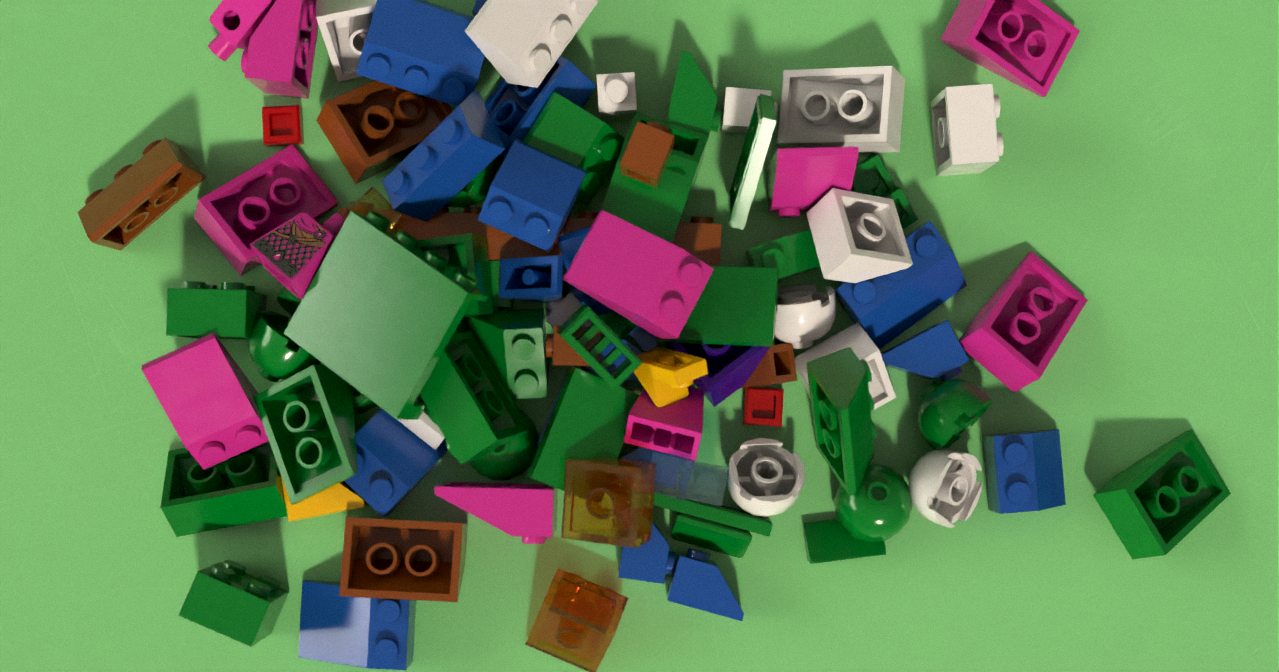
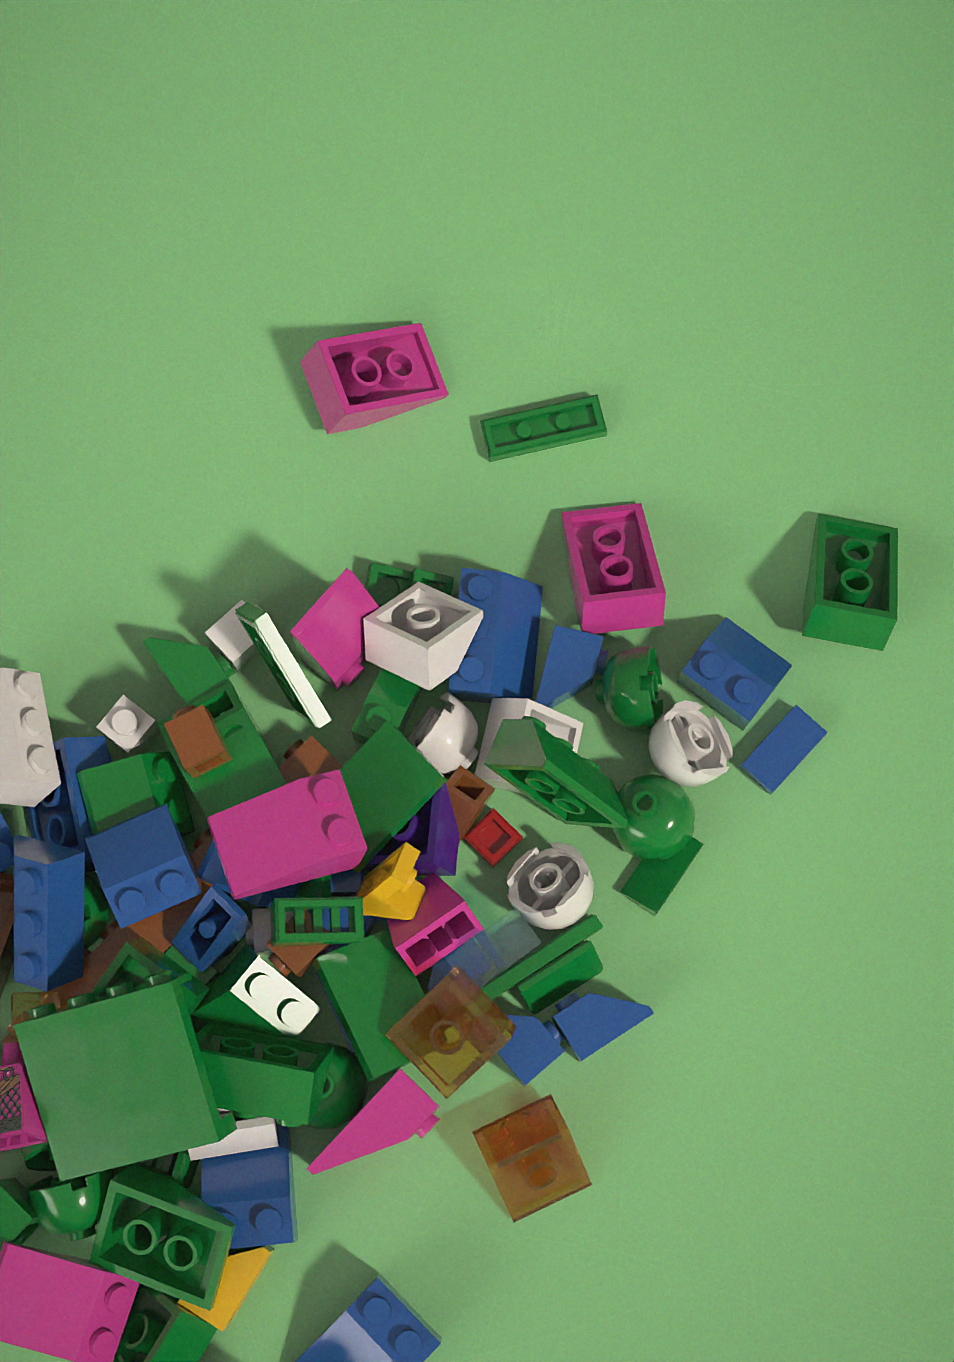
camera: 45 degrees left, 10 degrees down
(403, 559) = (343, 1257): dark orange slope -> none
(842, 108) = (308, 555): white slope -> none
(966, 129) = (416, 476): white brick -> none
(1000, 549) = (783, 749): none -> blue tile
(1080, 184) = (543, 428): none -> green tile

